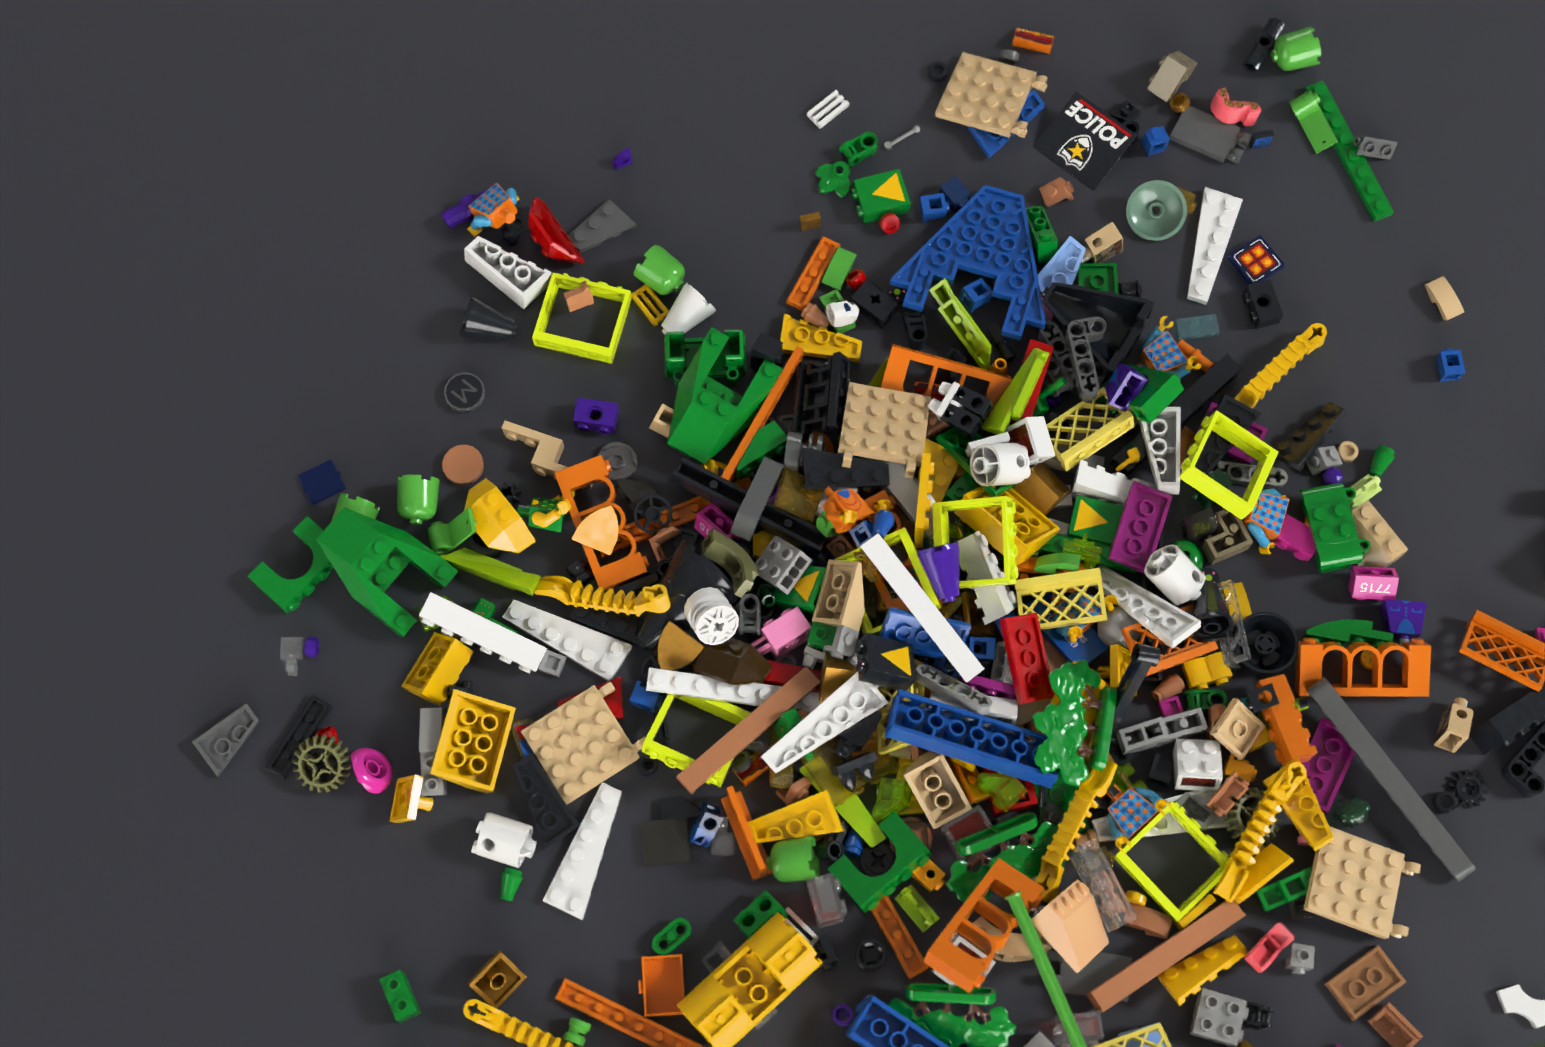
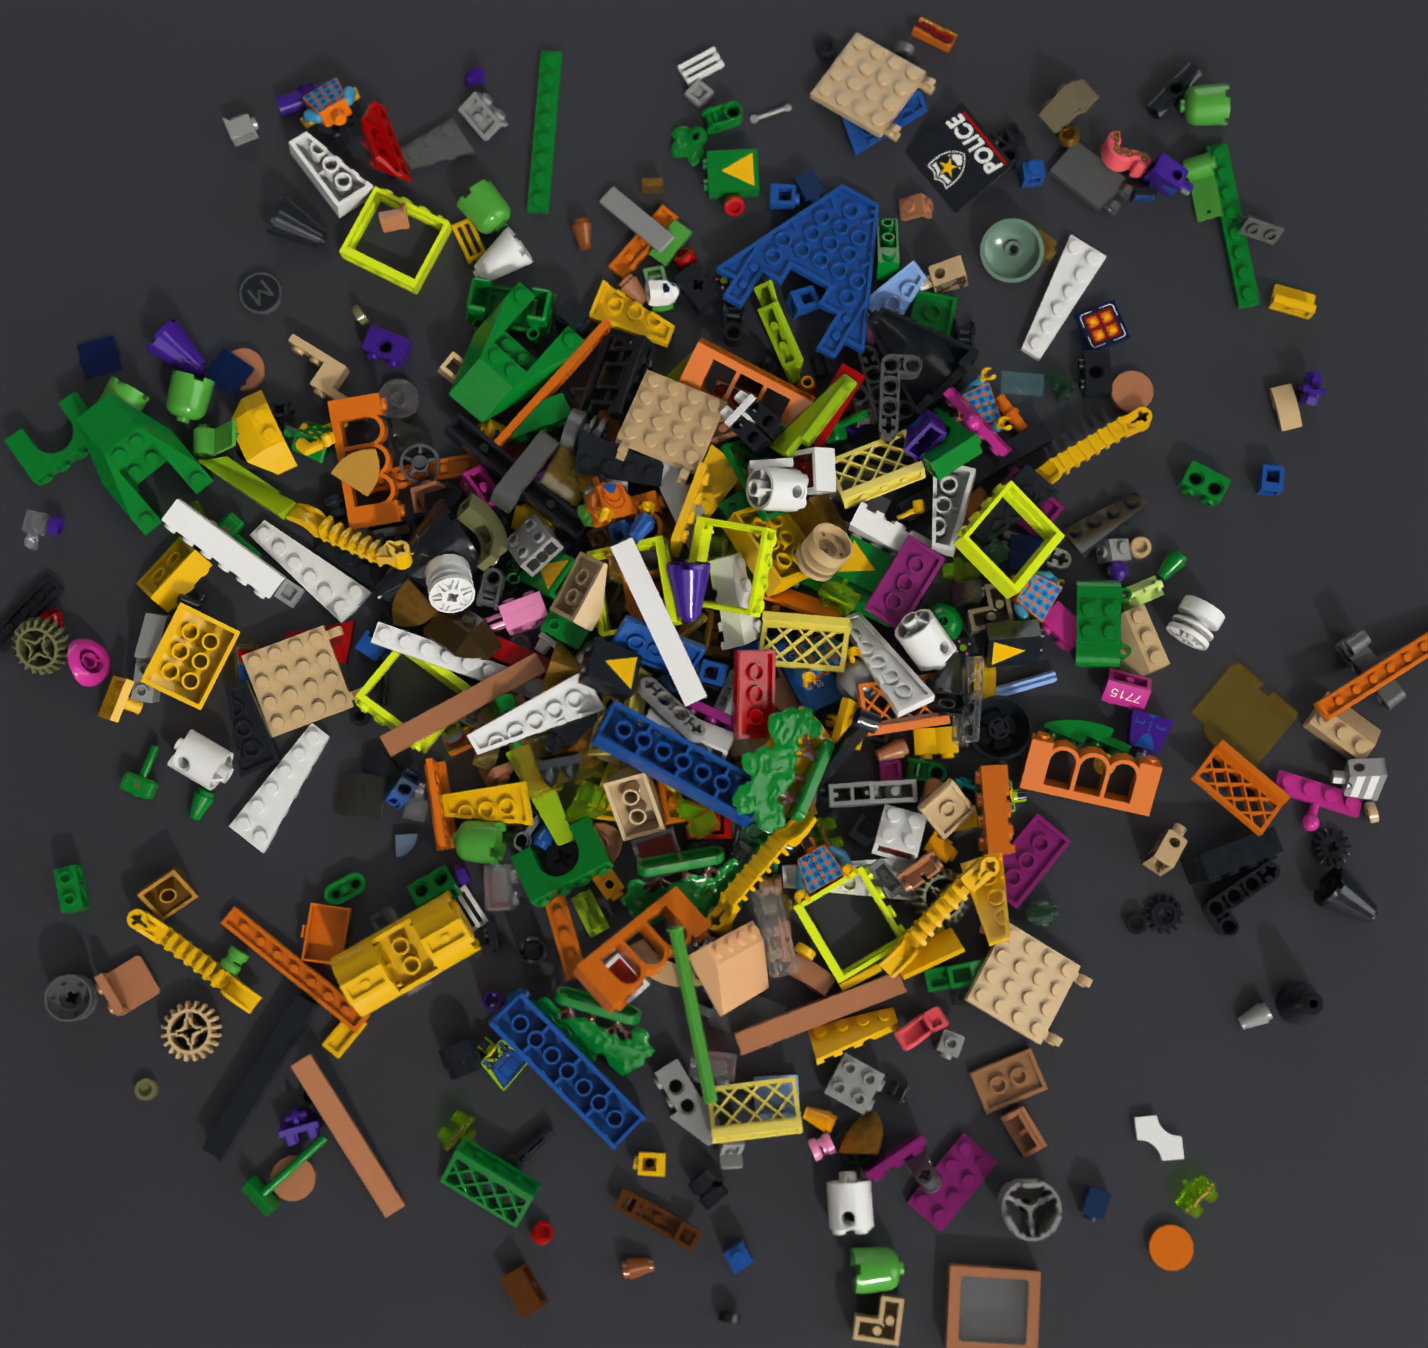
camera: 10 degrees right, 10 degrees up
(396, 457) = (177, 349): none -> dark purple cone
(415, 248) = (242, 129): none -> light grey window
(446, 878) = (139, 784): none -> green piece
(450, 469) = (229, 372): none -> clear blue piece
(563, 391) = (360, 314): none -> olive tile
(637, 191) = (483, 115): none -> light grey bracket
(698, 195) = (544, 132): none -> green plate
(719, 880) = (405, 843): none -> sand blue tile
(754, 275) = (582, 231): none -> dark orange cone
(783, 897) = (462, 874): none -> dark purple tile
(803, 254) = (636, 219): none -> light grey tile
(832, 133) = (699, 93): none -> light grey tile
(843, 643) = (573, 639): light grey bracket -> none
(1049, 563) = (805, 600): bright green slope -> none
(1058, 513) = (823, 552): none -> tan wheel
(1167, 365) = (975, 423): none -> dark pink plate
(1186, 507) = (960, 571): none -> clear neon green hips
(1231, 317) = (1059, 381): none -> clear green bracket
(1241, 474) = (1022, 549): none -> clear blue piece
(1254, 703) = (968, 785): black bracket -> none
(1256, 561) = (1013, 643): none -> black brick
(1278, 117) = (1167, 176): none -> dark purple torso
(1278, 598) = (1026, 683): none -> light blue axle
(1299, 313) = (1131, 391): none -> nougat tile
(1390, 376) = (1206, 477): none -> green brick
(1391, 779) = (1086, 890): dark grey beam -> none
(1420, 507) = (1195, 622): none -> white wheel
(1422, 205) = (1292, 301): none -> yellow panel
(1463, 278) = (1310, 390): none -> dark purple hips
(1487, 583) = (1244, 714): none -> clear yellow piece

